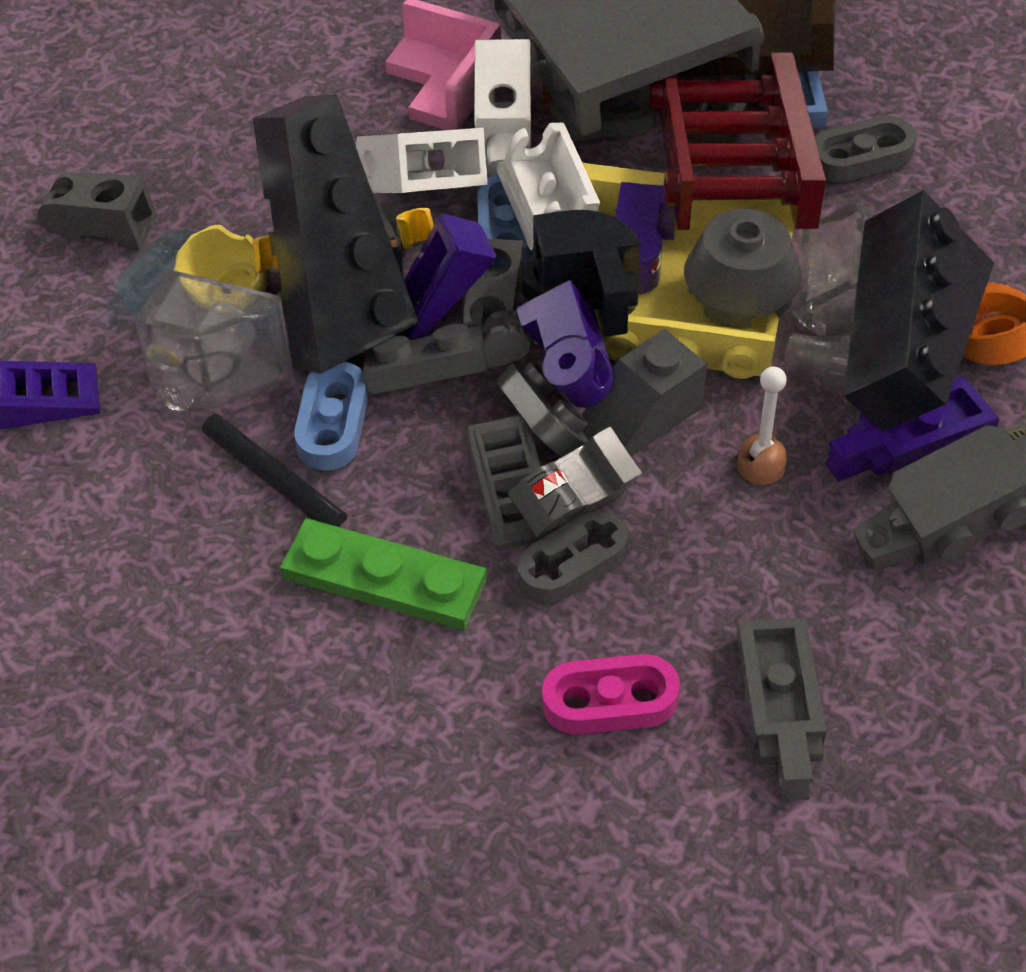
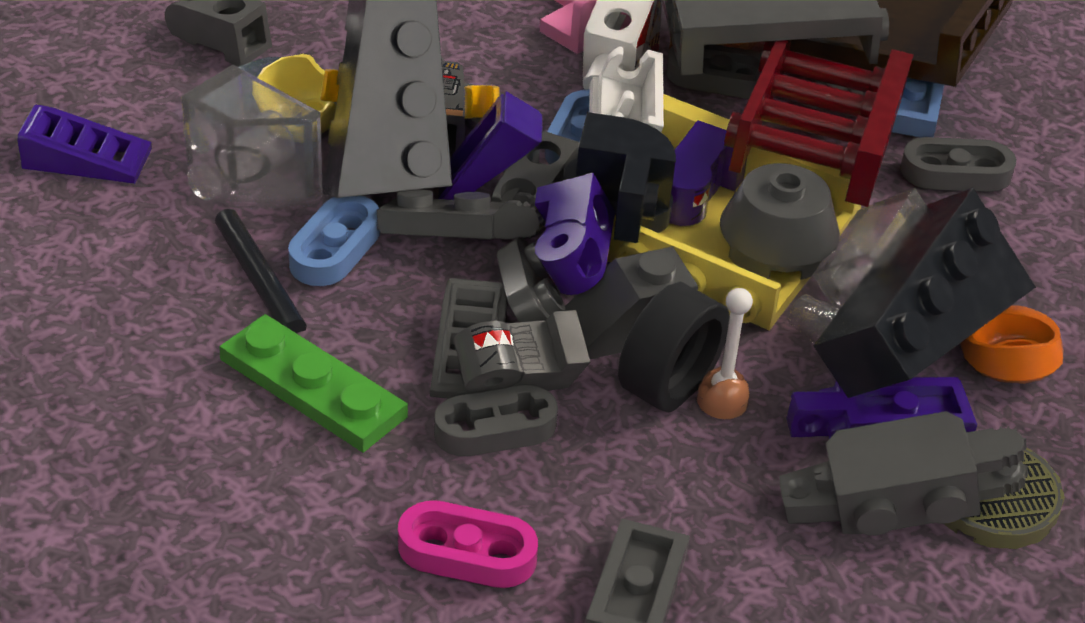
camera: 15 degrees right, 10 degrees down
(401, 160) = (508, 49): white torso -> none
(709, 432) = (673, 346): none -> black tyre

